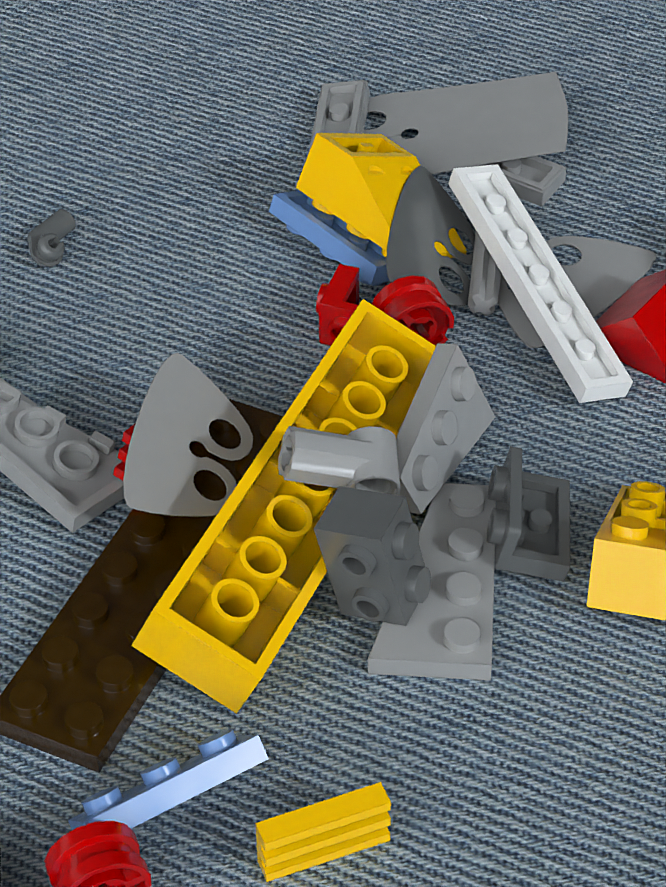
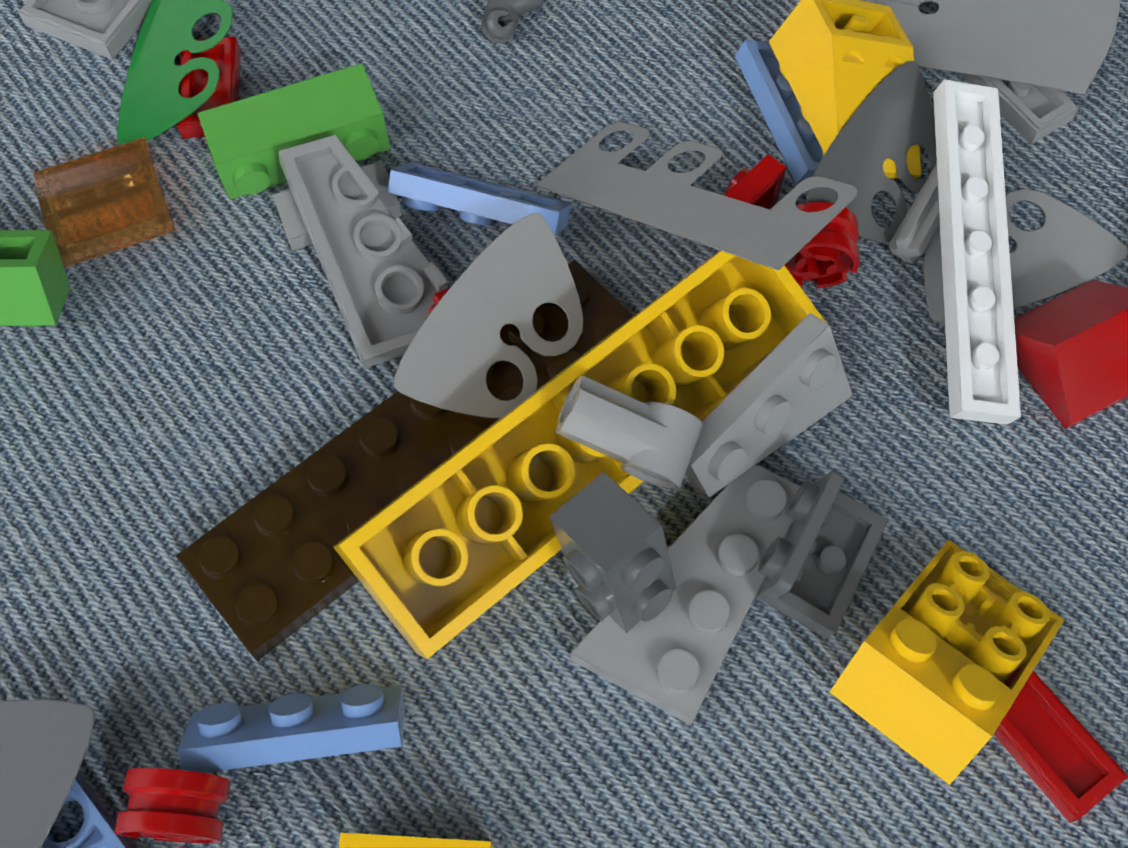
camera: 25 degrees right, 20 degrees up
(103, 379) = (476, 199): none -> medium blue plate
(280, 315) = (673, 205): none -> light grey piece

